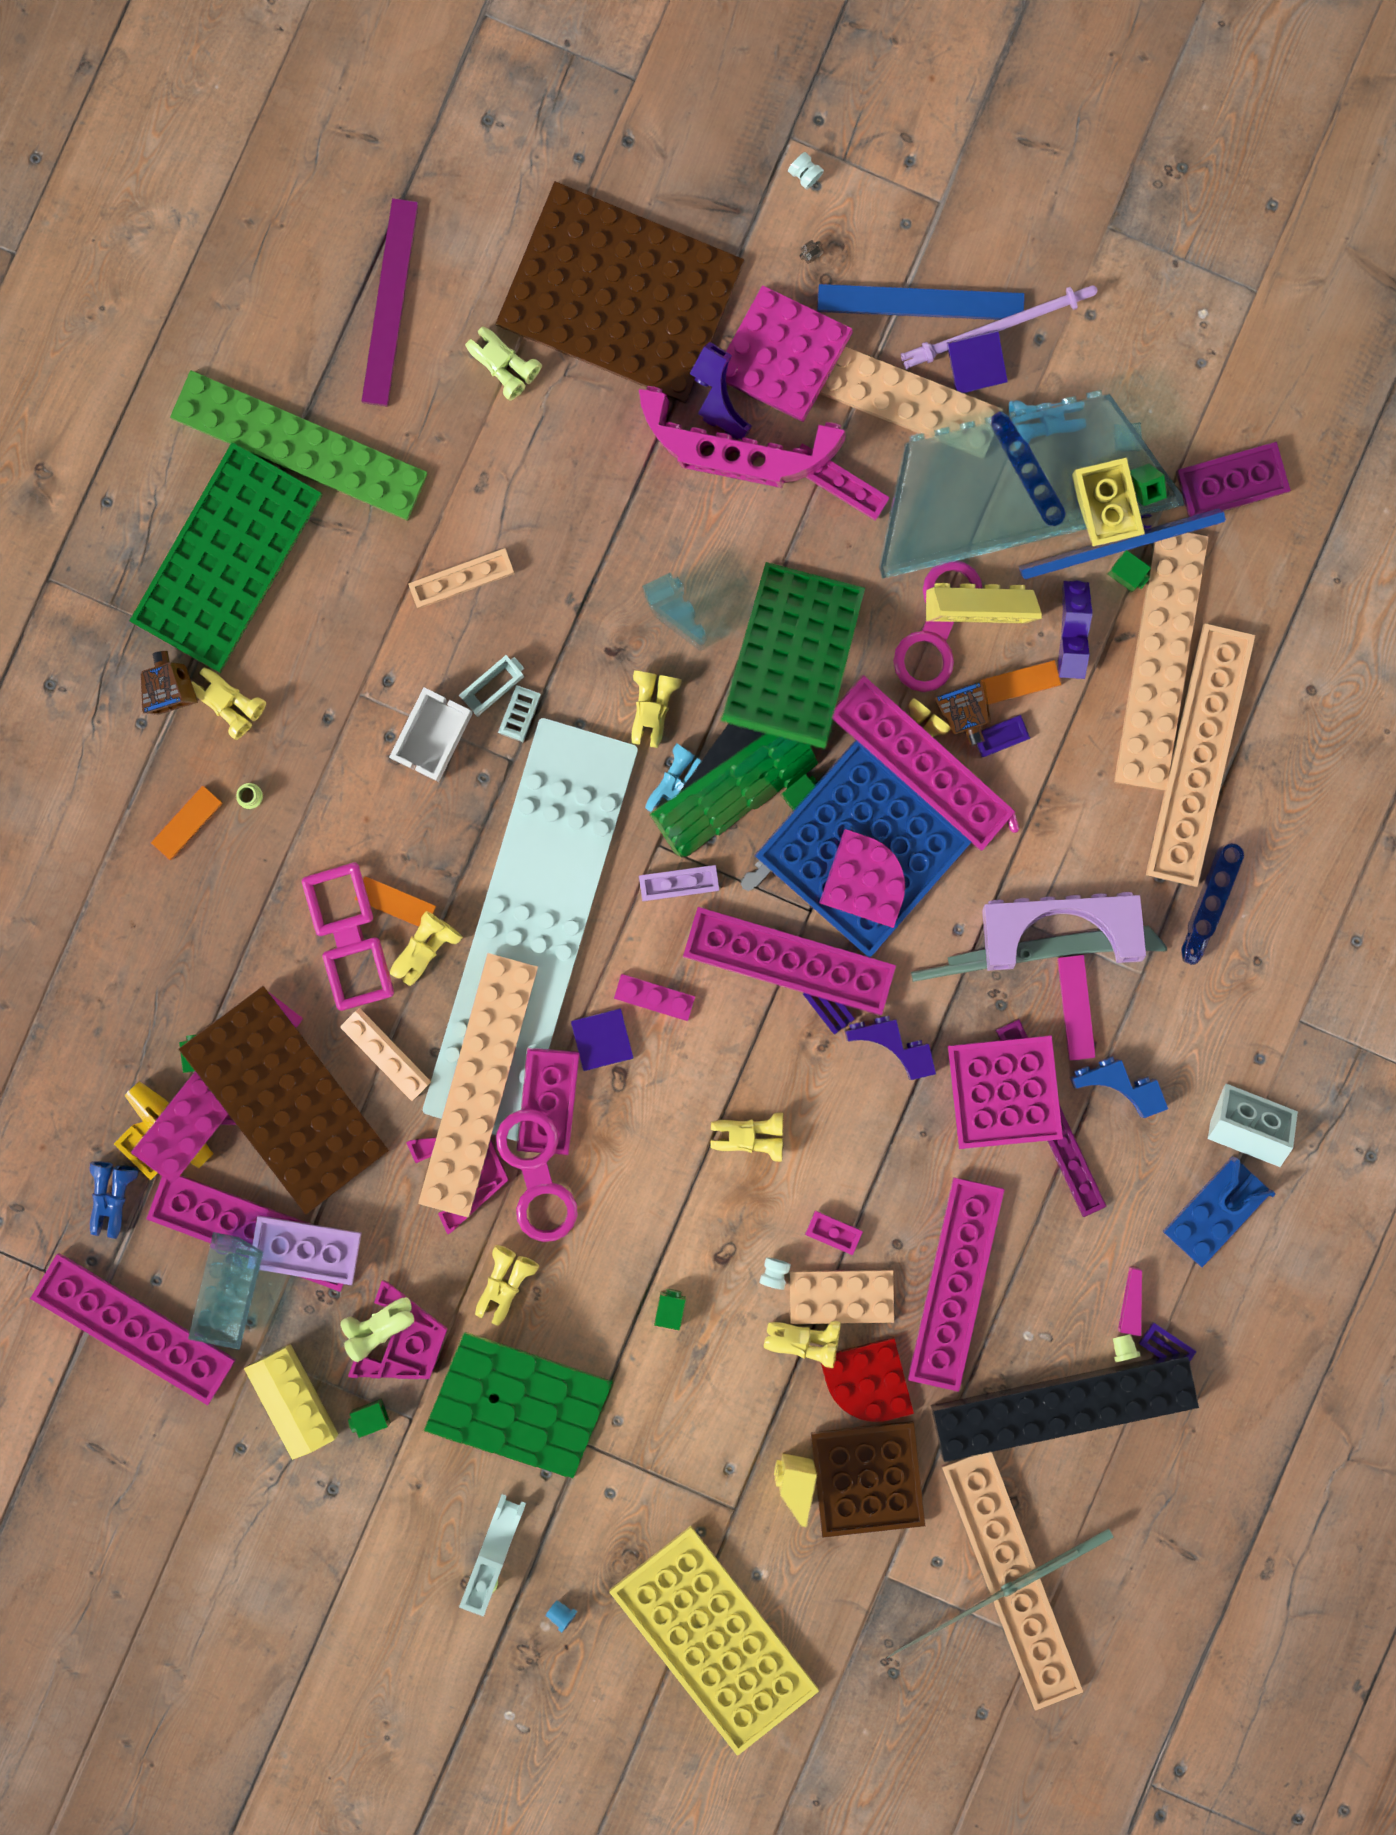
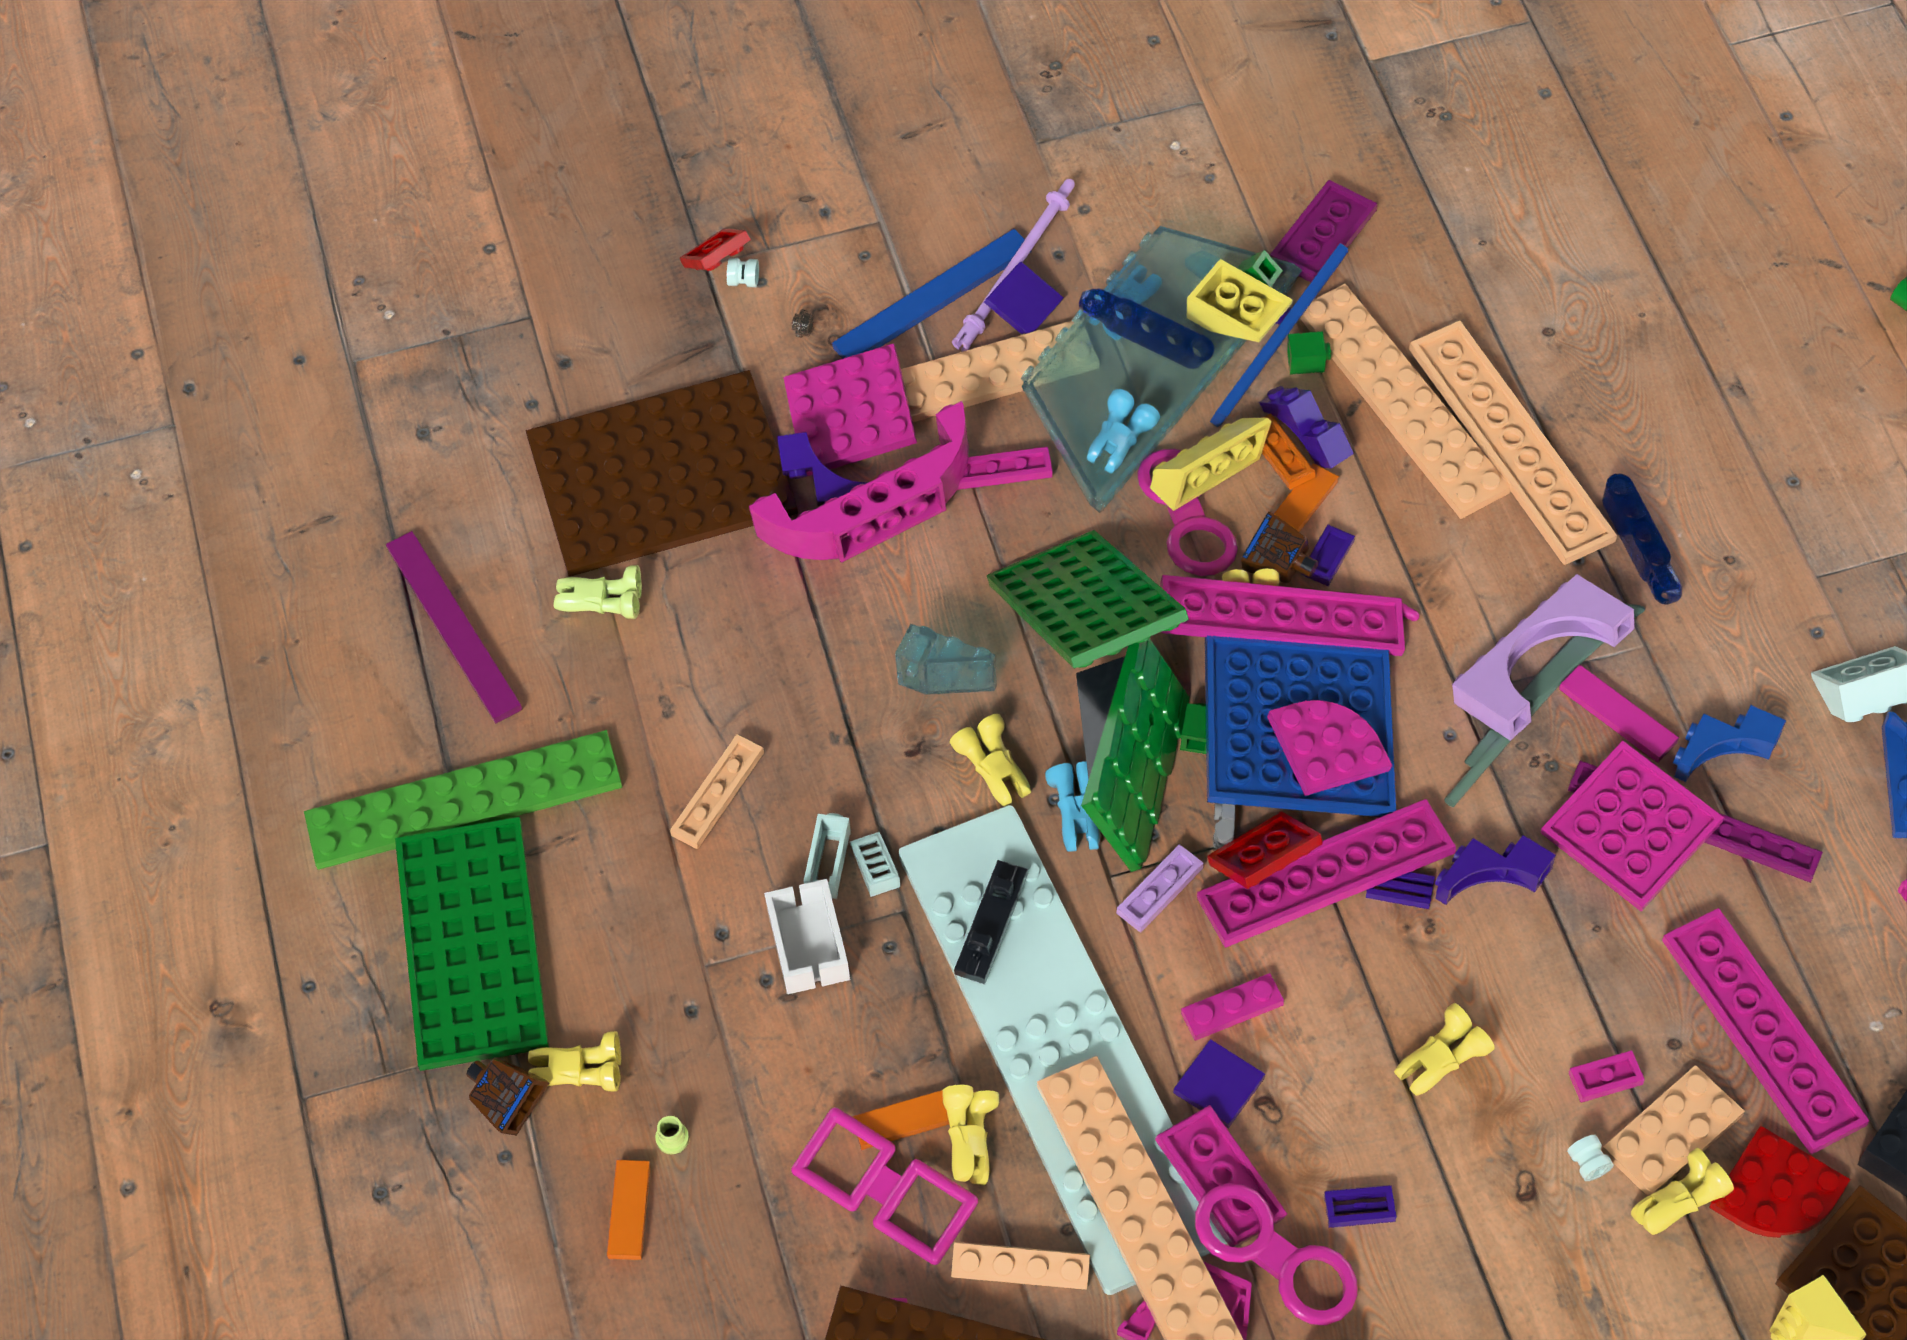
camera: 35 degrees left, 30 degrees down
(552, 821) = (991, 922): none -> black hinge
(634, 1197) = (1360, 1219): none -> dark purple tile
(670, 1309) = (1526, 1276): green brick -> none
(762, 916) = (1265, 850): none -> red plate
(799, 136) = (711, 251): none -> red plate
(935, 535) = (1117, 437): none -> medium azure piece
(1041, 634) = (1286, 457): none -> orange tile

